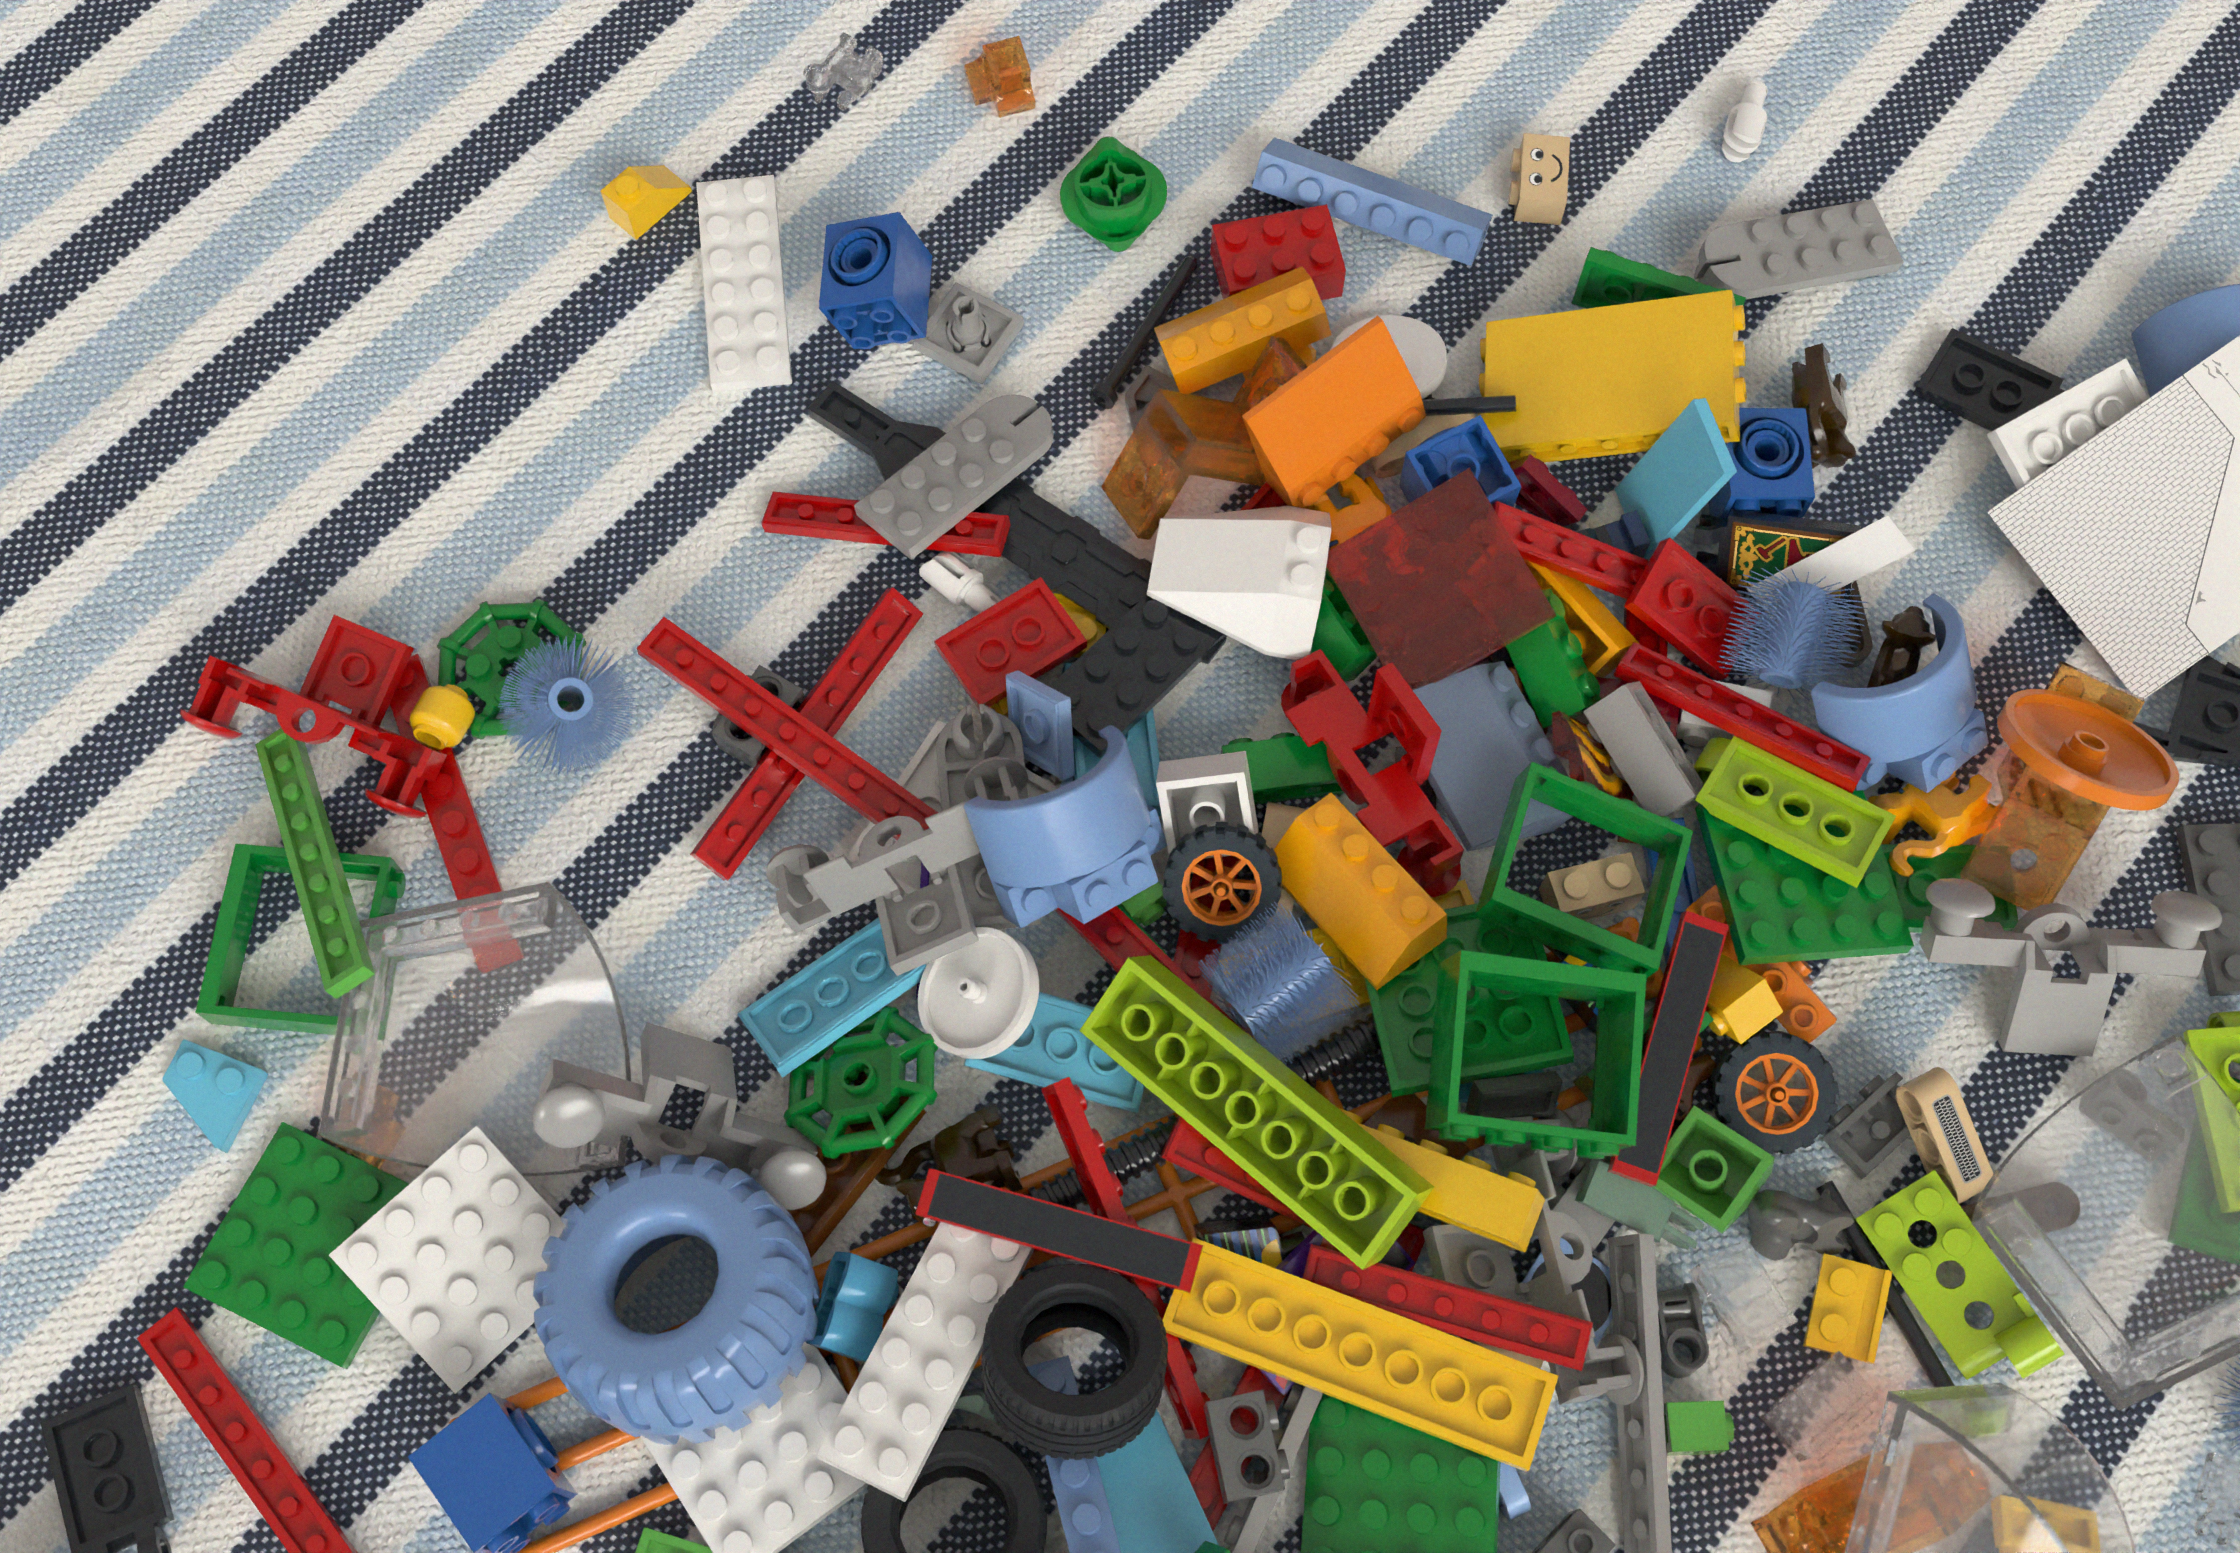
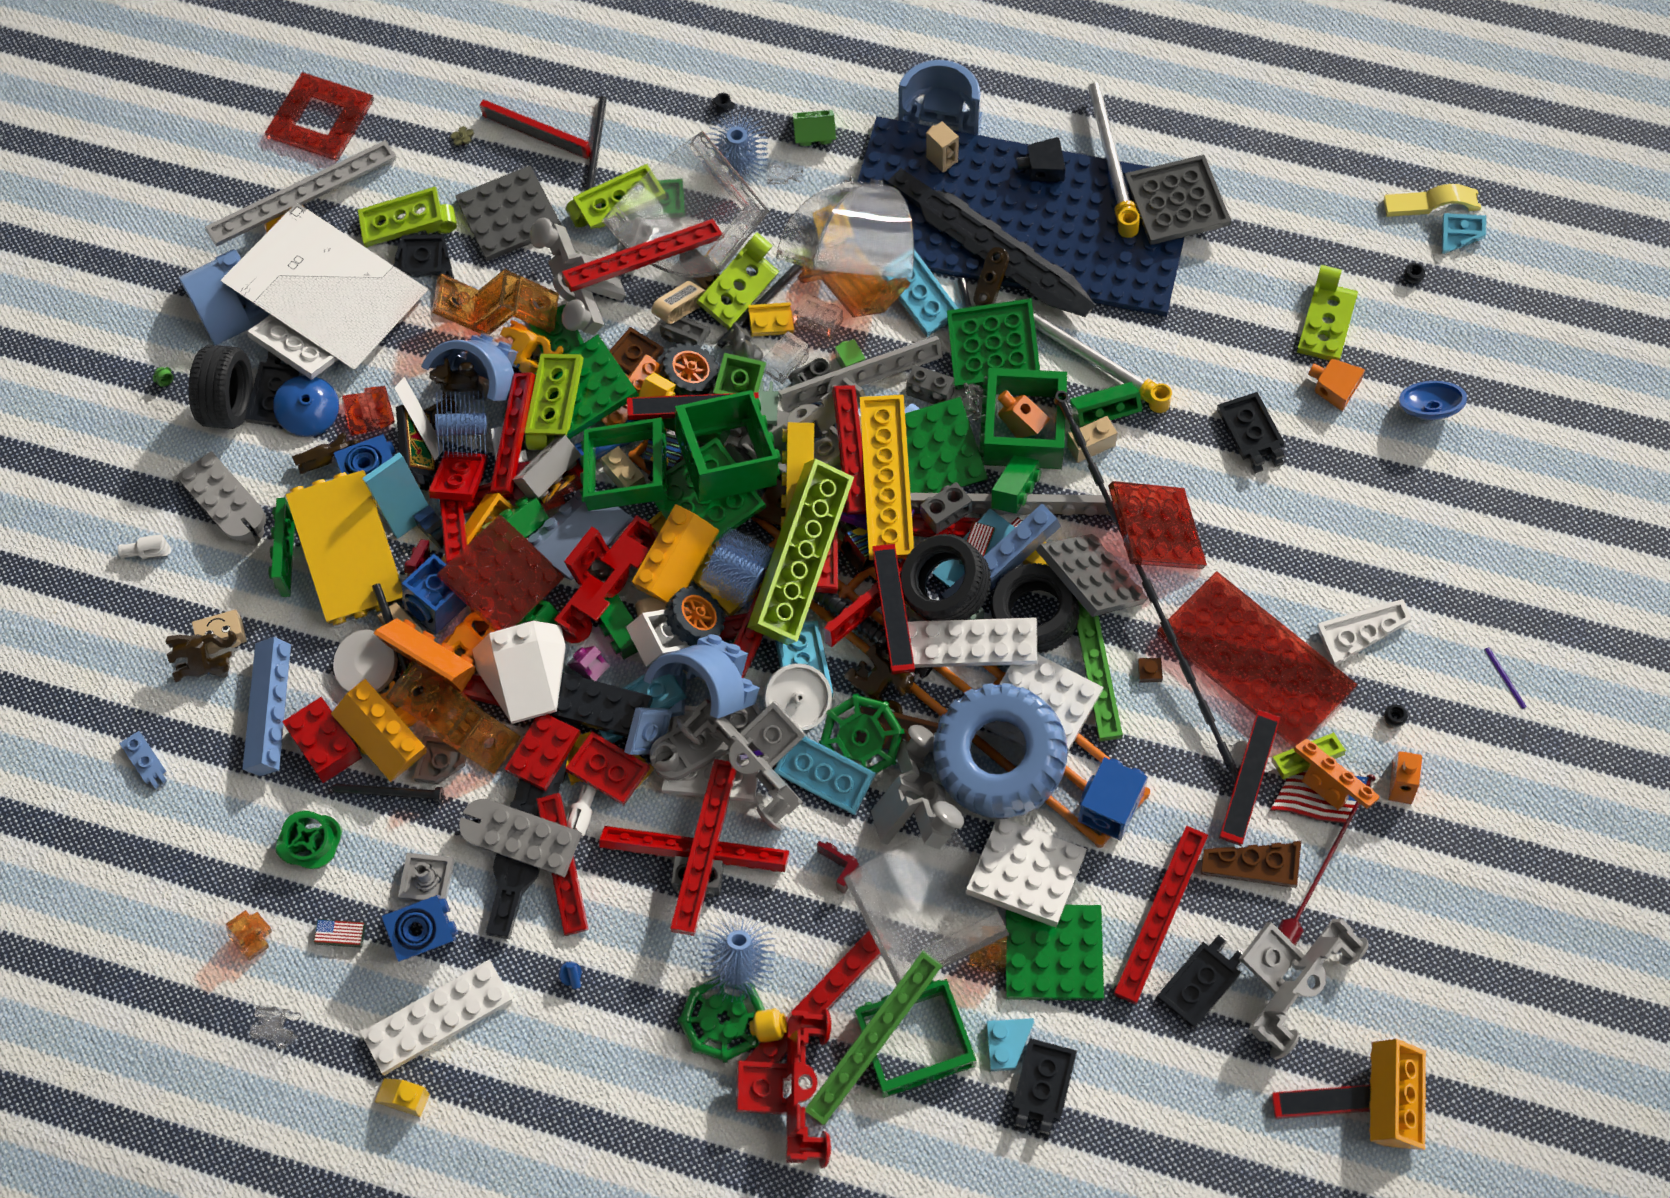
camera: 110 degrees left, 5 degrees down
(109, 1114) = (1043, 1084): none -> black tile
(658, 961) = (847, 861): none -> dark red bracket
(703, 477) = (570, 974): none -> blue plate
(853, 1305) = (954, 686): dark azure brick -> none
(945, 197) = (339, 933): none -> tile
(1091, 558) = (542, 751): none -> red plate
(1150, 1483) = (980, 537): none -> tile
(1225, 689) = (588, 663): none -> magenta brick
(1364, 31) = (143, 759): none -> medium blue hinge
(1502, 130) = (196, 654): none -> dark brown animal
(1867, 1012) = (632, 348): none -> reddish brown plate
(1912, 508) = (368, 410): none -> clear red slope
(1935, 448) = (306, 417): none -> blue dish
(2030, 246) = (220, 386): none -> black tyre
(2074, 1096) = (641, 255): none -> red plate
(2086, 233) = (163, 376): none -> bright green plate
(2088, 749) = (482, 282): orange dish -> none

